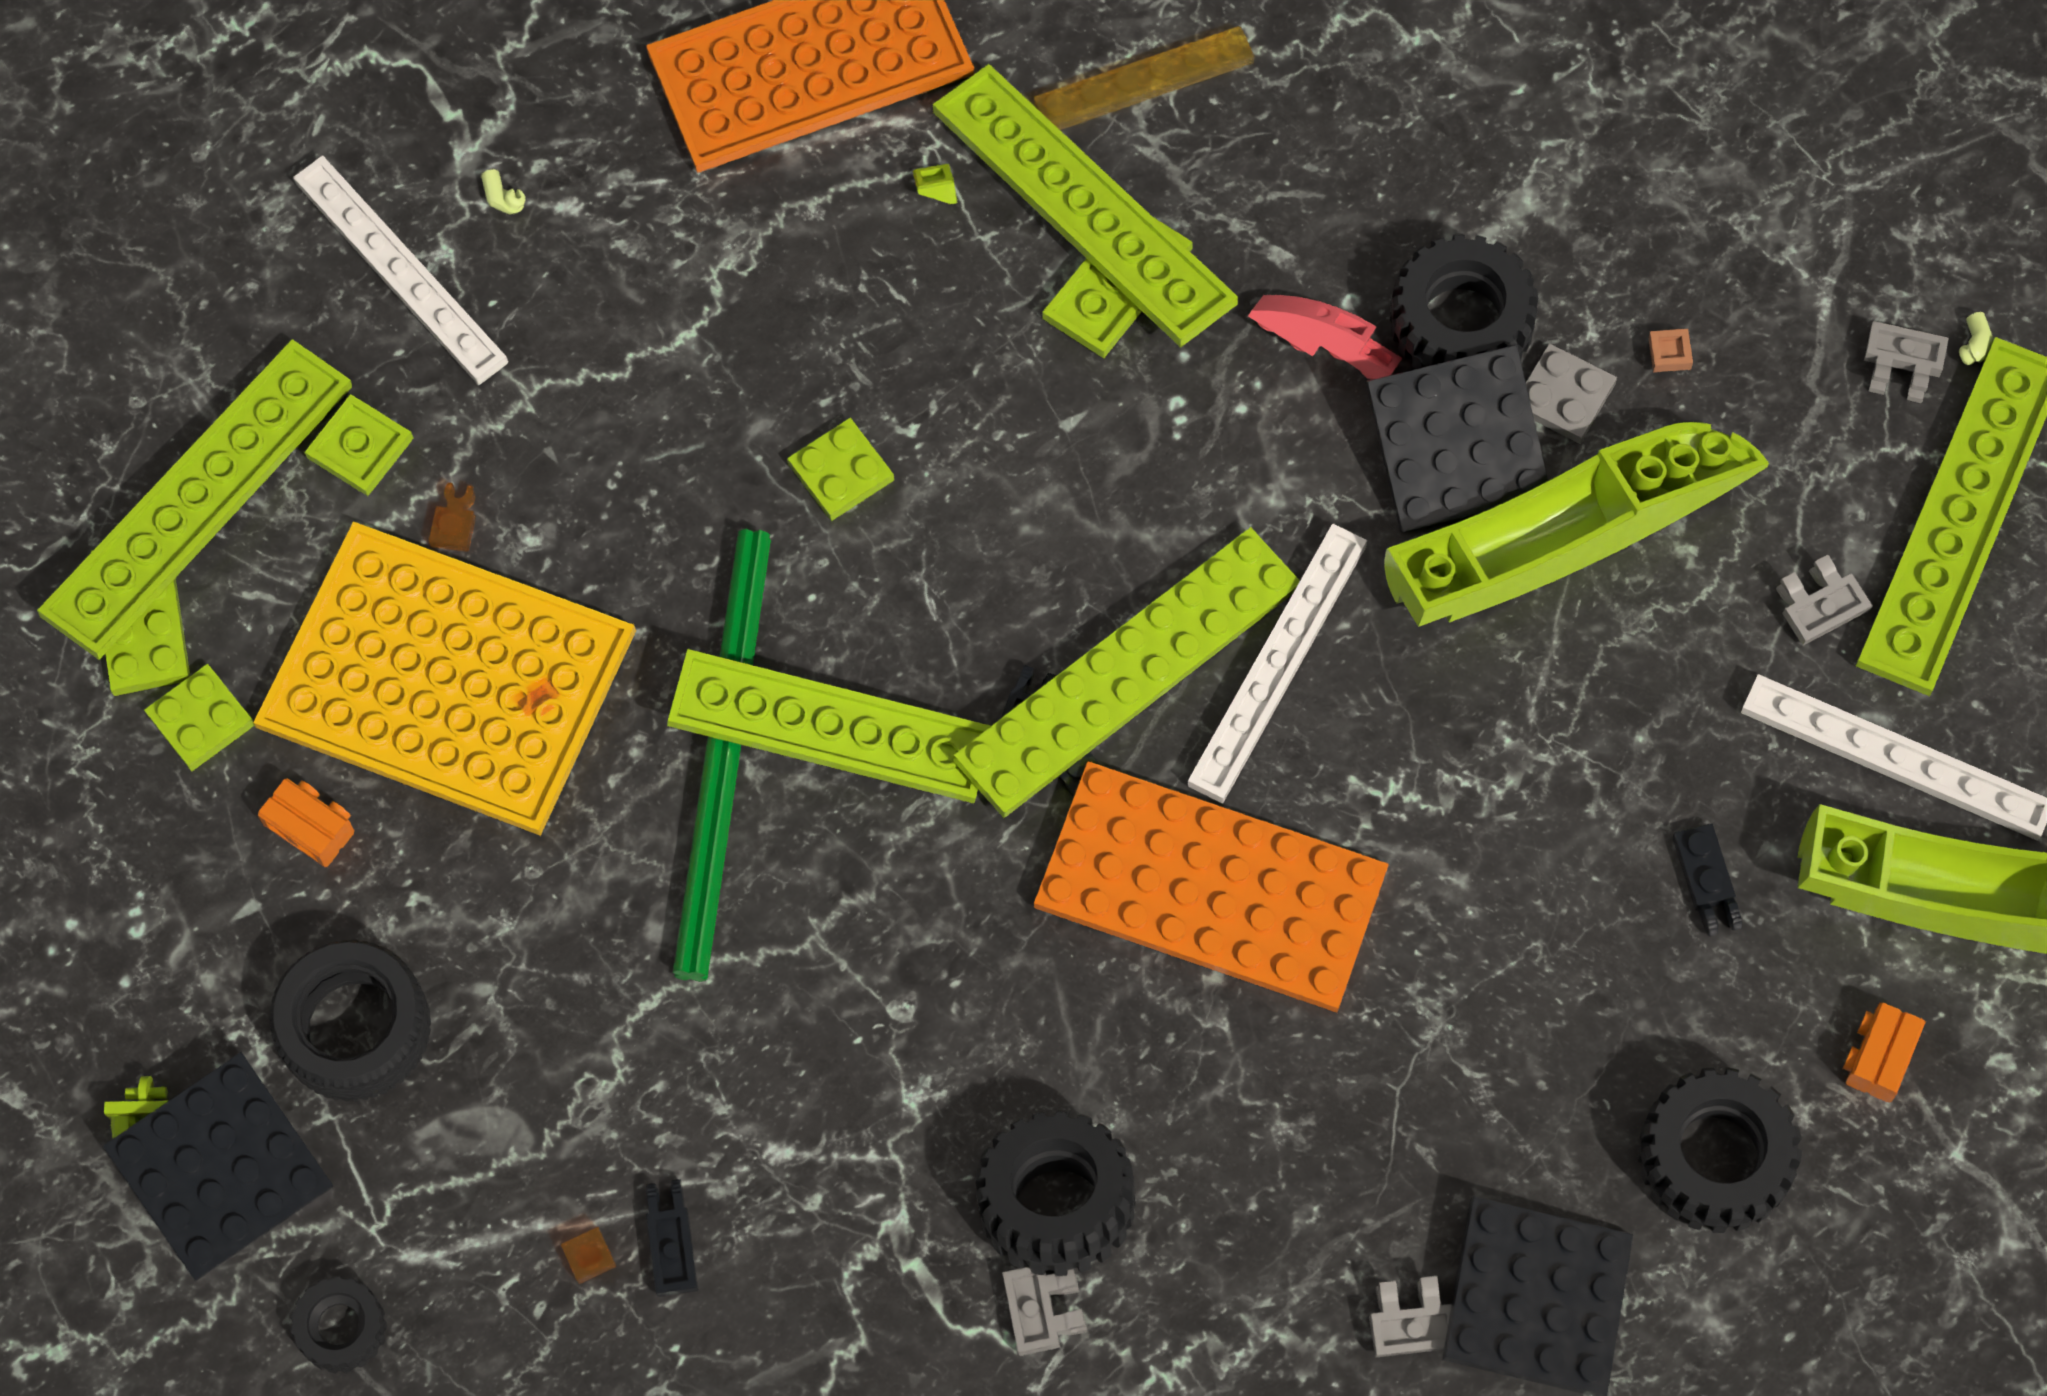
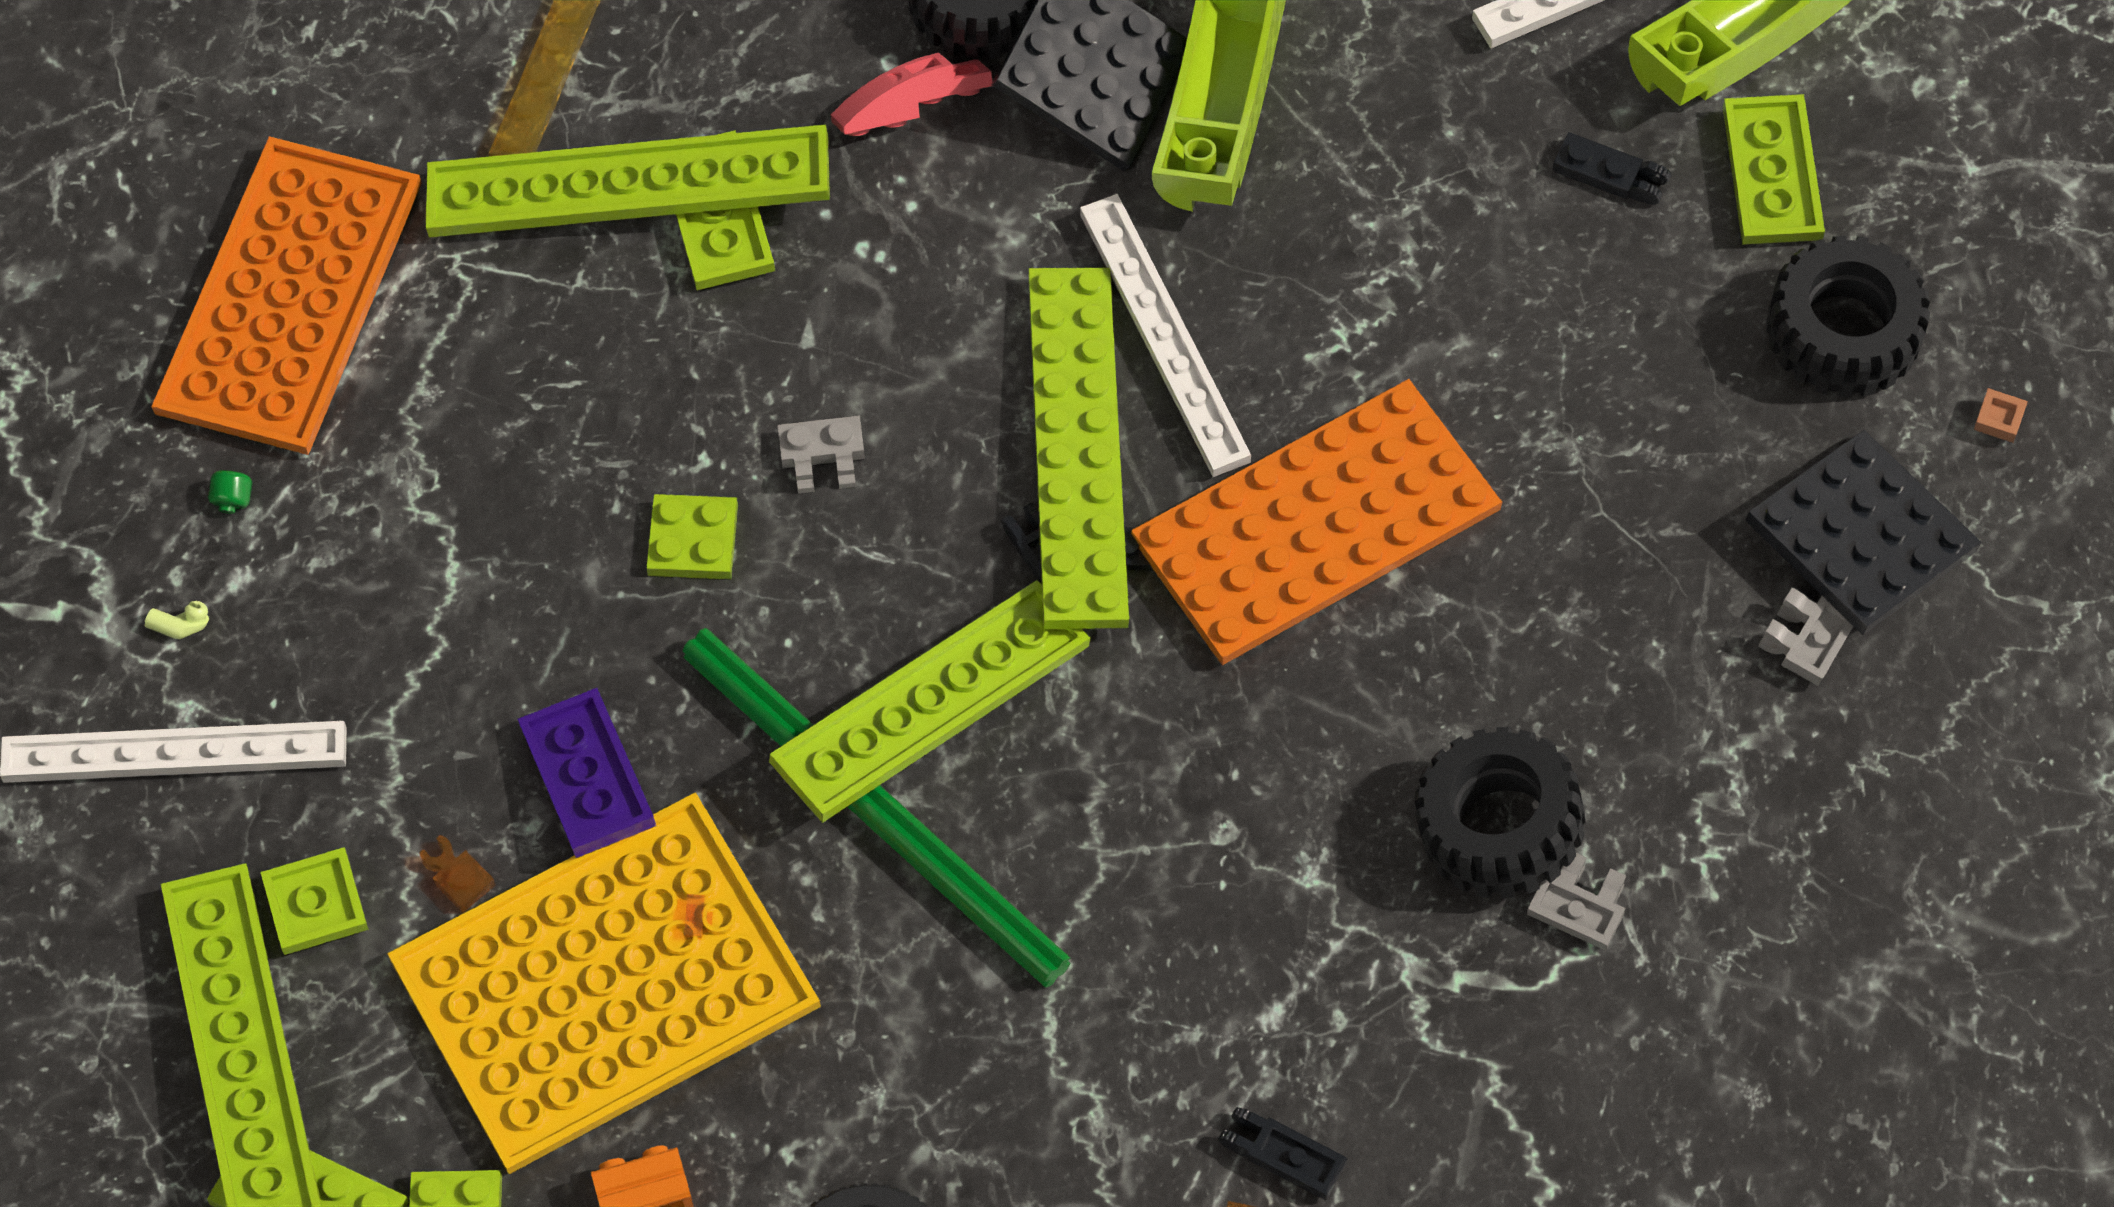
camera: 55 degrees left, 5 degrees down
(590, 542) = (586, 772): none -> dark purple plate
(626, 146) = (229, 490): none -> green piece
(936, 183) = (496, 280): lime slope -> none
(988, 496) = (822, 443): none -> light grey plate
(1737, 1331) = (2000, 415): none -> nougat plate
(1814, 1000) = (1773, 169): none -> lime plate
(1884, 1051) = (1855, 152): orange brick -> none

